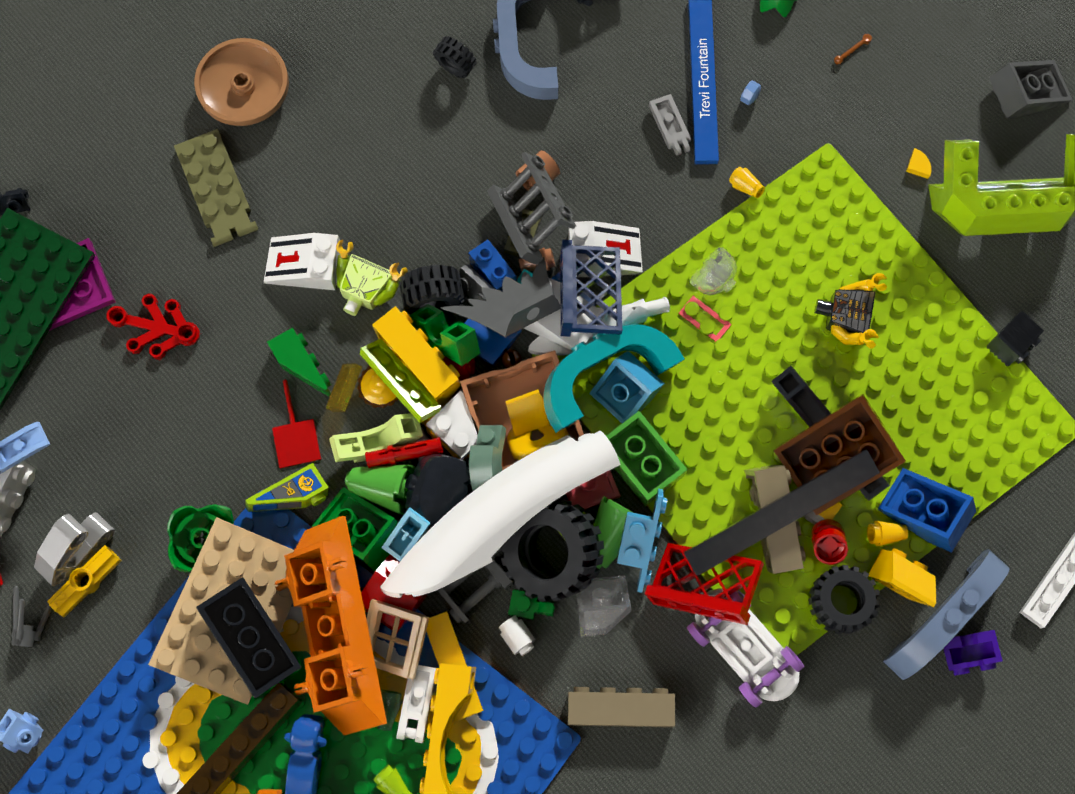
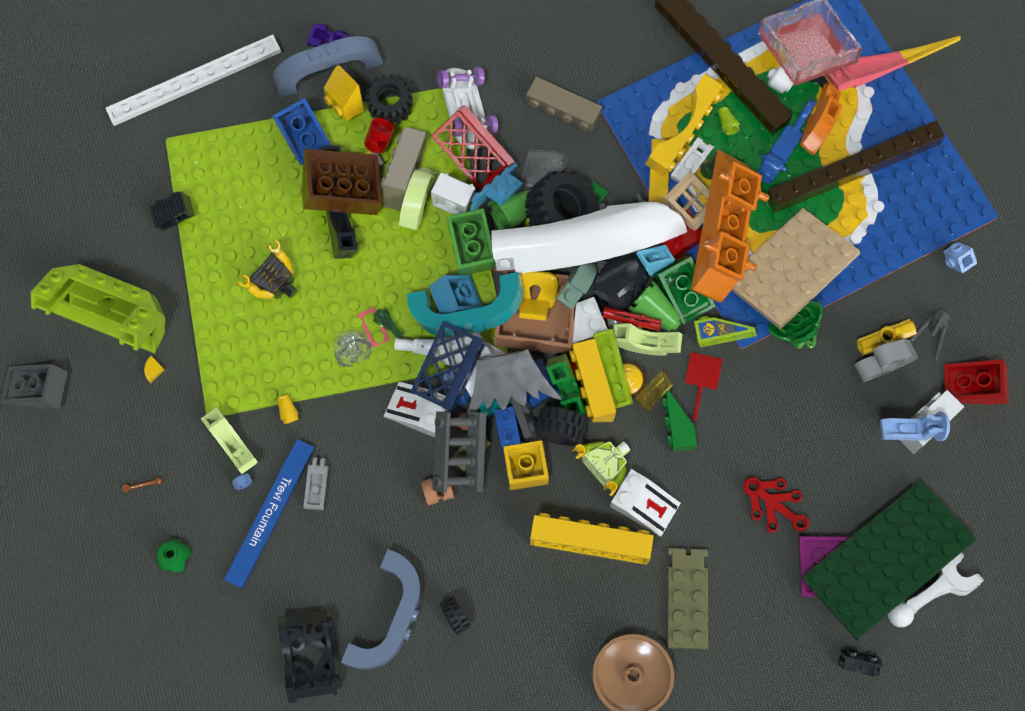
camera: 155 degrees left, 0 degrees up
(248, 637) = (787, 237): black brick -> none
(342, 189) = (591, 539): none -> yellow brick
(451, 234) = (526, 465): none -> yellow slope
(517, 636) = (608, 175): white brick -> none
(694, 503) = (452, 195): none -> white container
(695, 325) = (385, 320): none -> clear green cone
(738, 479) = (415, 197): none -> yellowish green arch
(781, 512) = (401, 158): black tile -> none
(786, 125) = (229, 440): none -> yellowish green arch
(884, 533) = (337, 128): yellow cone -> none

